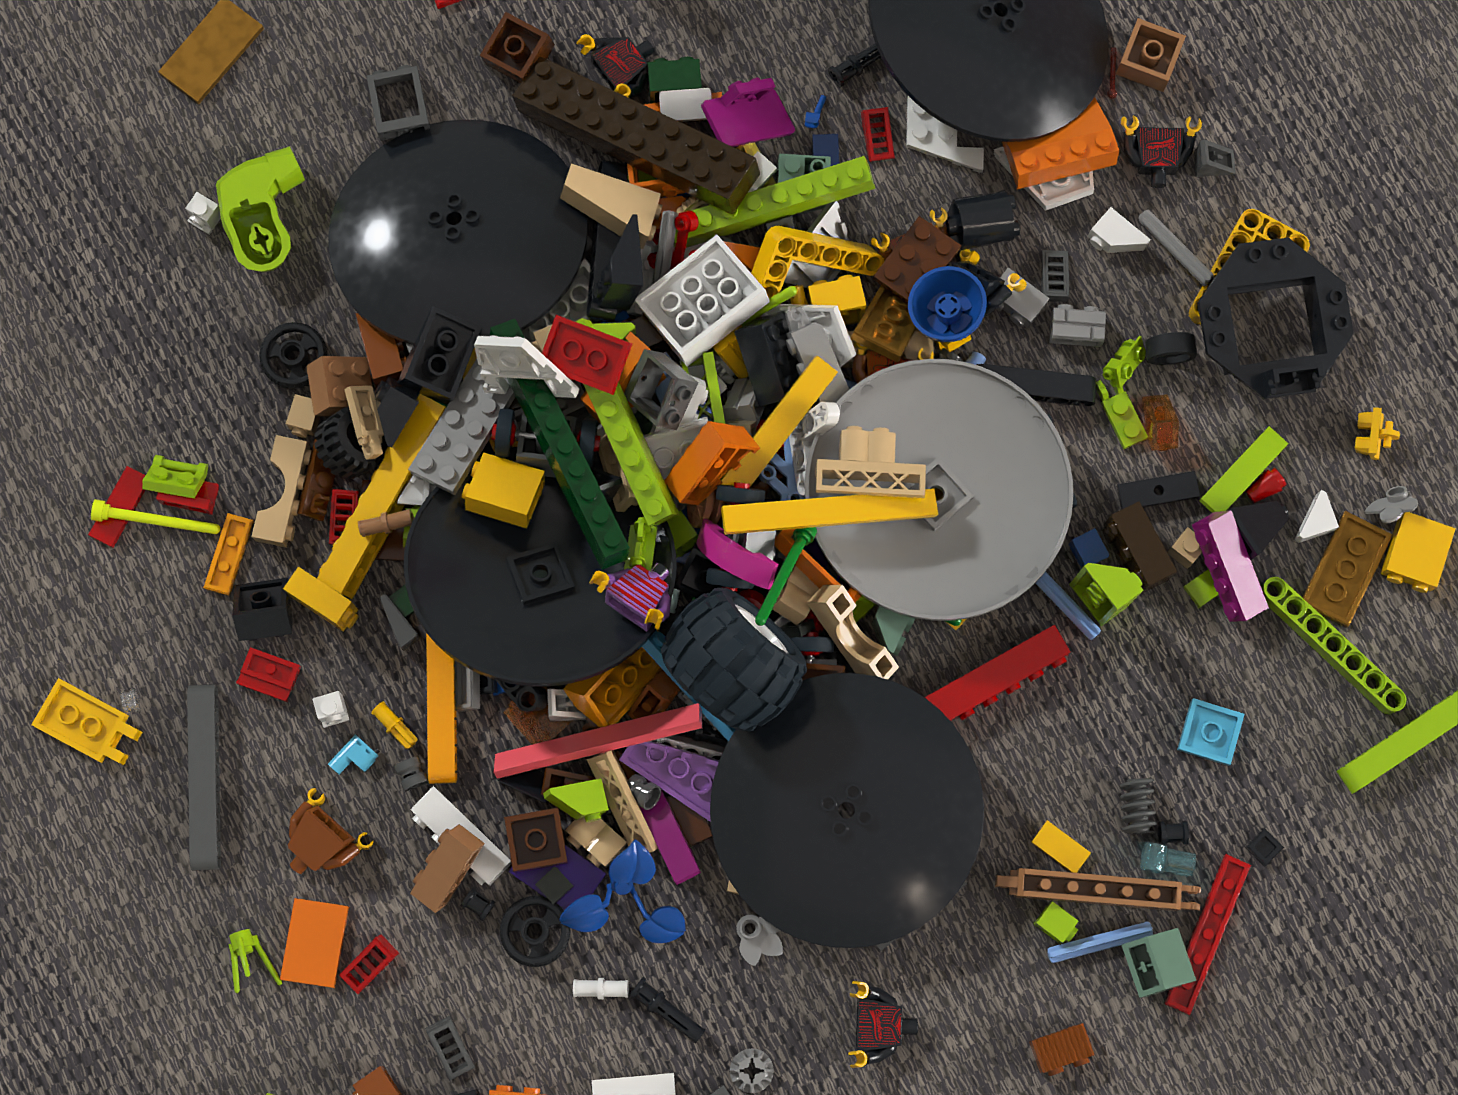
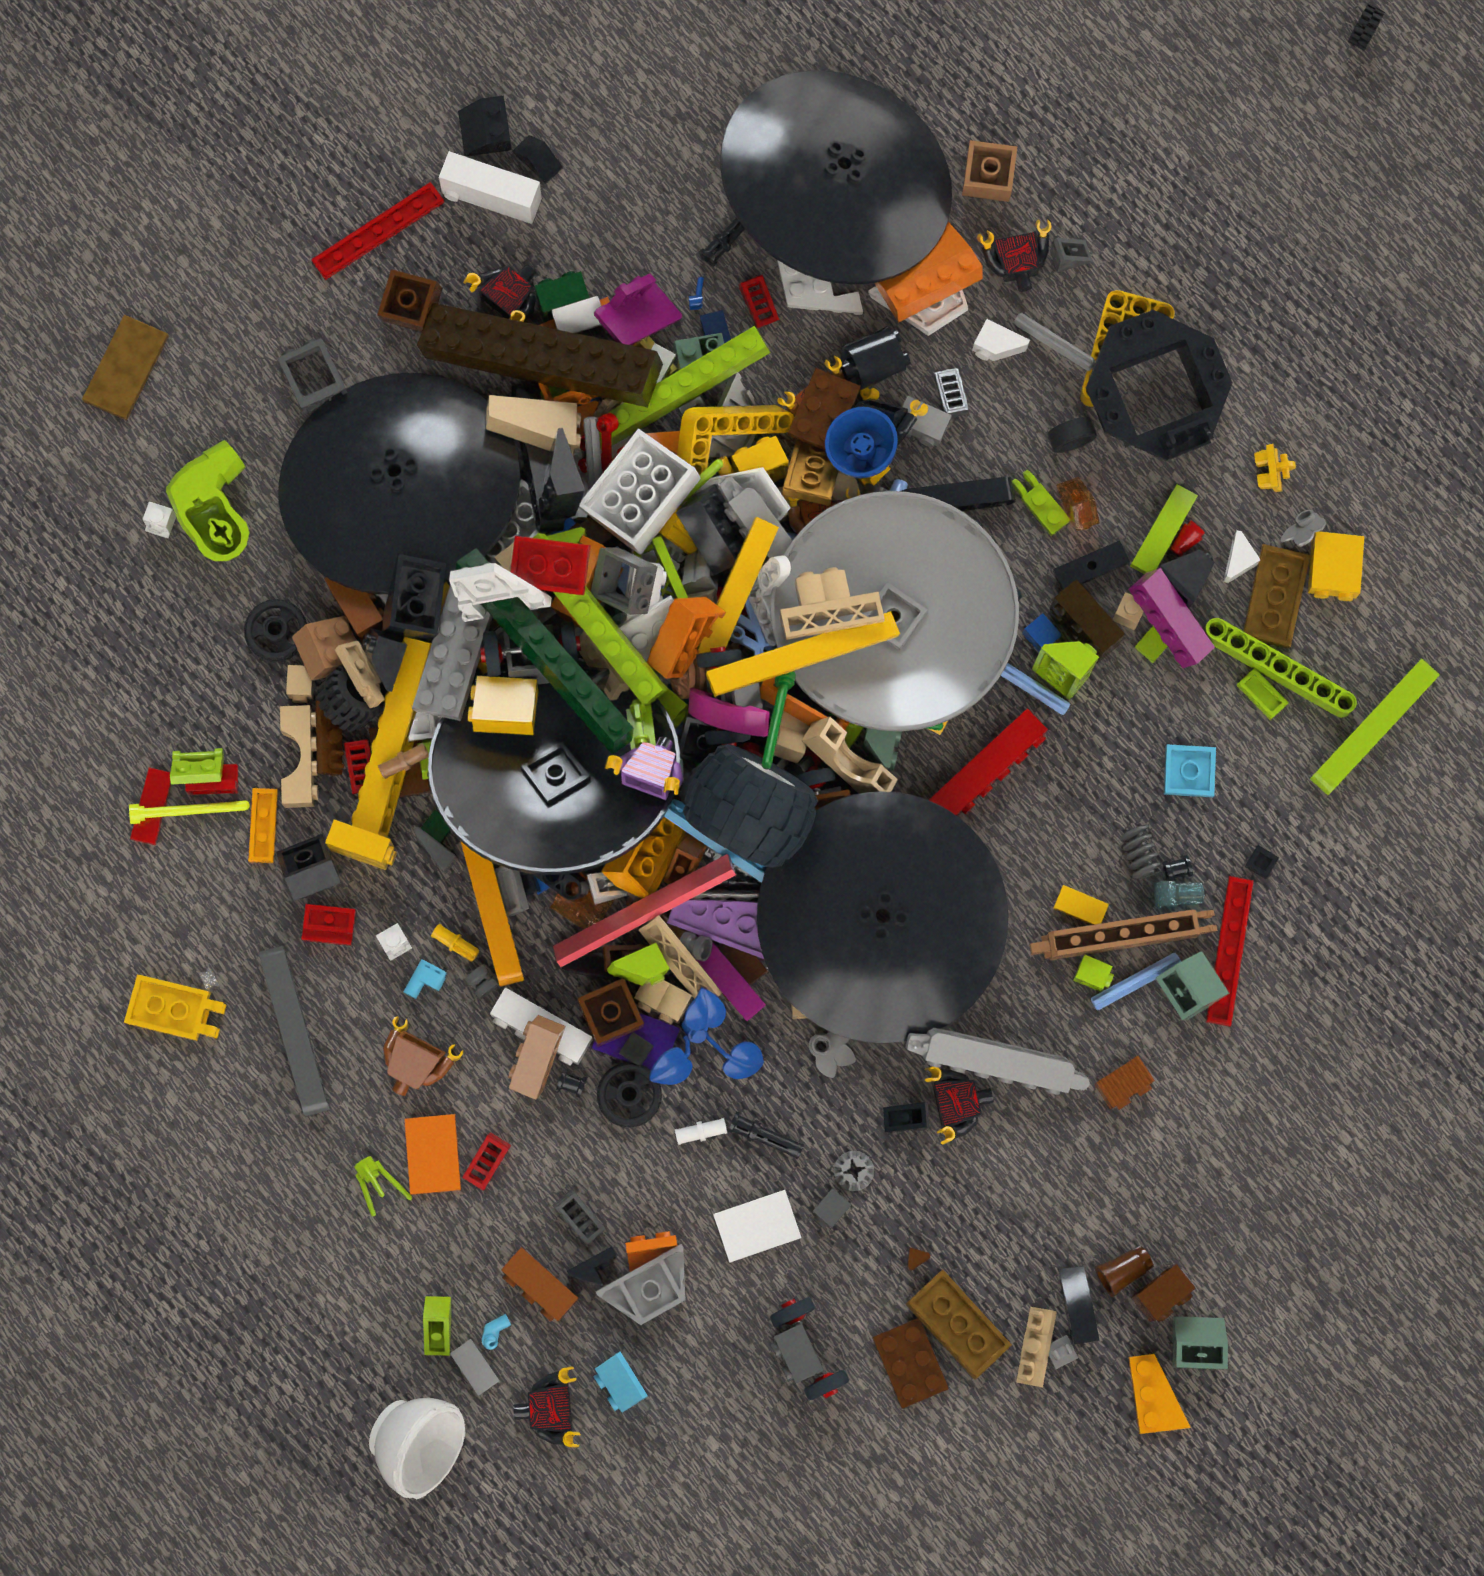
camera: 15 degrees left, 0 degrees up
(820, 1028) = (906, 1117): none -> black slope
(931, 991) = (998, 1060): none -> light grey hinge
(1077, 326) = (983, 434): light grey brick -> none
(1112, 93) = (962, 213): clear red hinge -> none
(1130, 355) = (1034, 456): lime hinge -> none
(1307, 668) = (1262, 694): none -> lime tile

